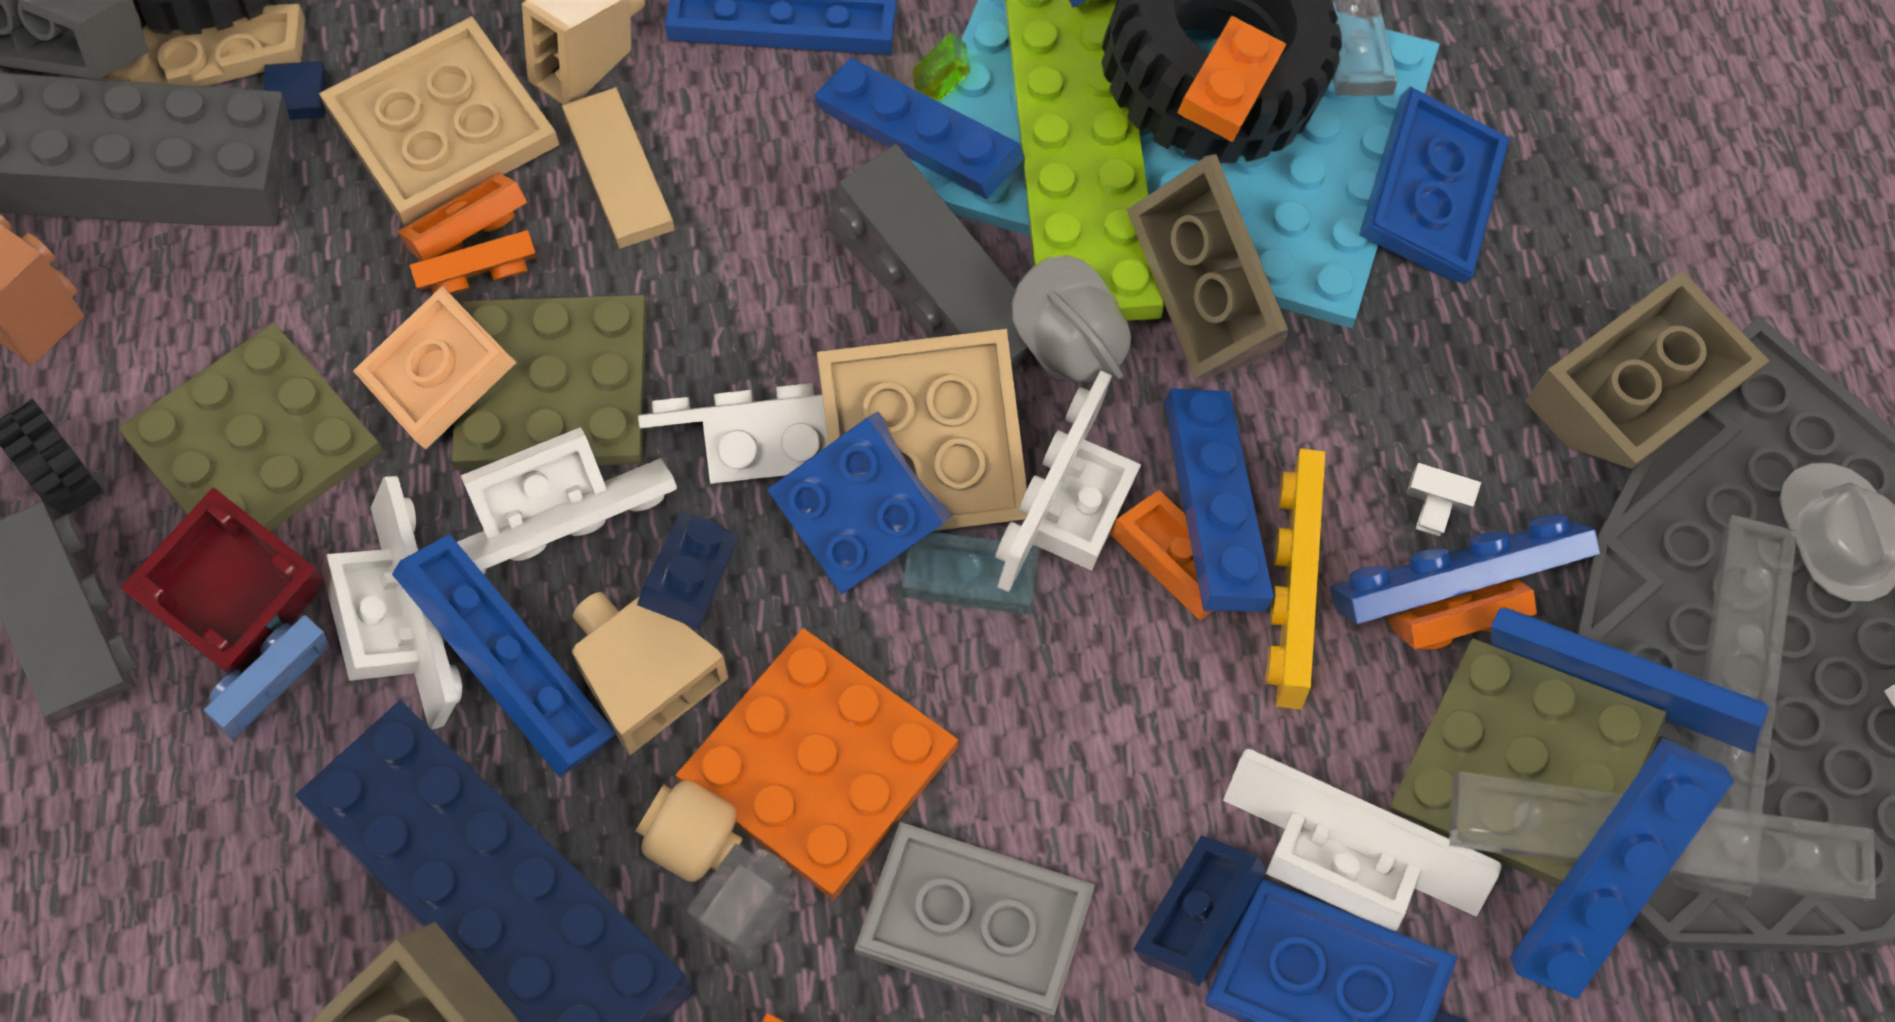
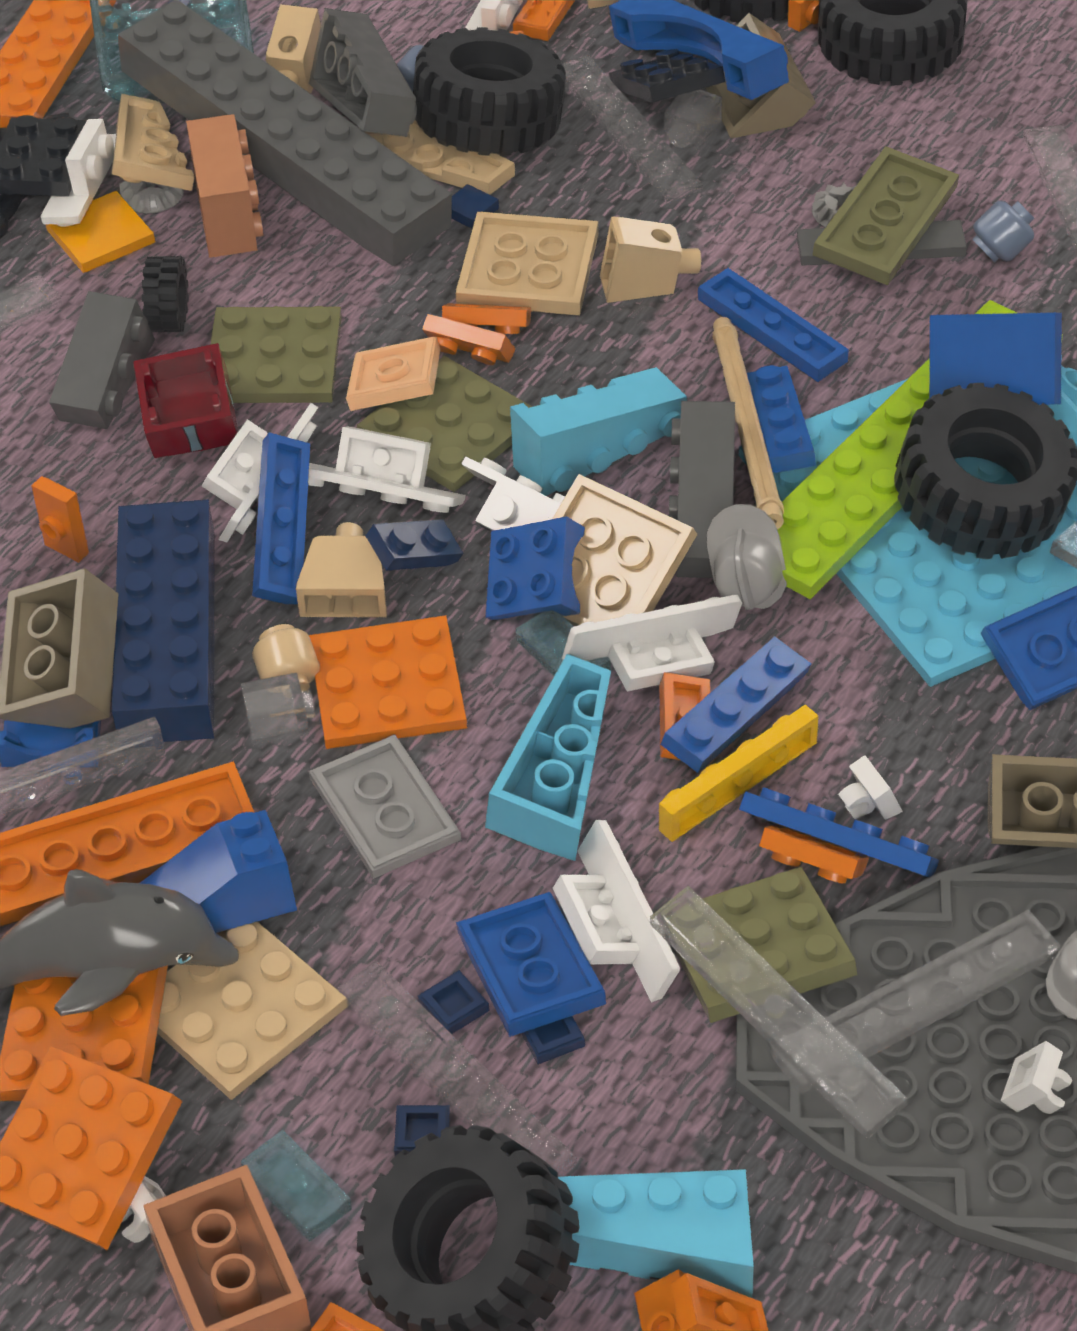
camera: 45 degrees right, 15 degrees down
(230, 867) = (60, 518): none -> orange plate
(284, 658) = (165, 458): medium blue plate -> none
(618, 168) = (598, 343): tan tile -> none
(737, 277) = (592, 428): none -> medium azure wedge
(872, 139) = (746, 417): none -> tan piece
(942, 68) = (830, 401): clear neon green tile -> none
(1125, 730) = (548, 774): none -> medium azure wedge
(1200, 910) = (512, 876): dark blue plate -> none
(1208, 271) = (852, 582): dark tan slope -> none
(1231, 78) = (946, 470): orange plate -> none
(1621, 868) = (725, 994): blue plate -> none
(1686, 699) = (870, 957): blue tile -> none

